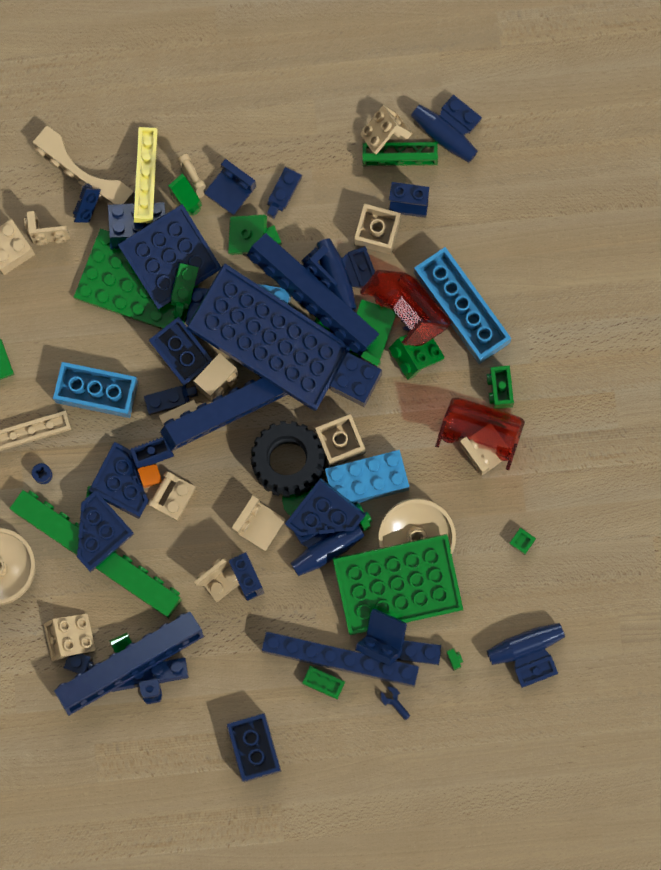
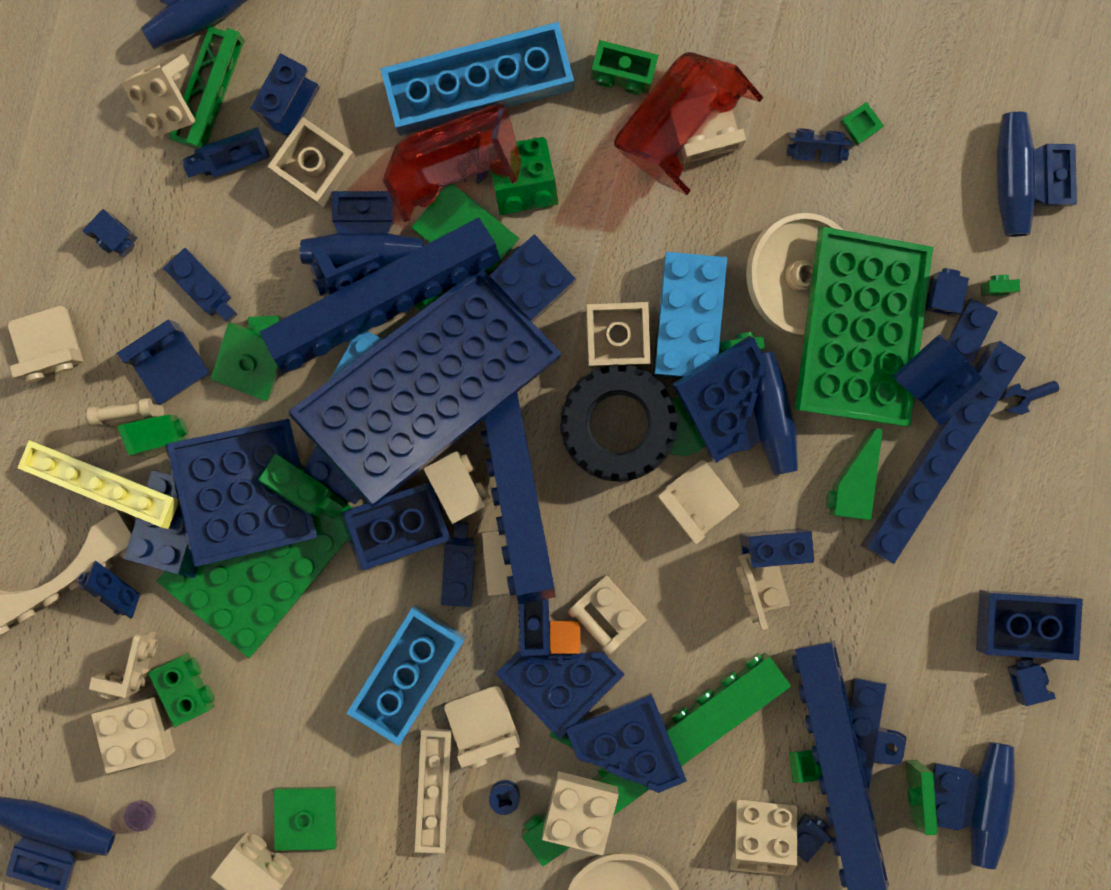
camera: 75 degrees left, 10 degrees up
(42, 265) = (182, 689): none -> green brick
(49, 515) = (580, 813): none -> tan brick
(80, 445) = (482, 726): none -> tan bracket
(127, 717) = (921, 797): none -> green plate
(135, 757) = (978, 802): none -> dark blue plate
(216, 116) = (44, 344): none -> tan bracket
(220, 763) = (1029, 682): none -> dark blue brick
(294, 130) = (111, 234): none -> dark blue brick
(299, 615) = (855, 486): none -> green slope
(323, 682) = (965, 489): green plate -> none
(365, 179) = (227, 154): none -> dark blue hinge
(366, 356) = (511, 244): green tile -> none
(438, 628) = (946, 292): none -> dark blue brick
(503, 527) = (830, 146): none -> dark blue hinge

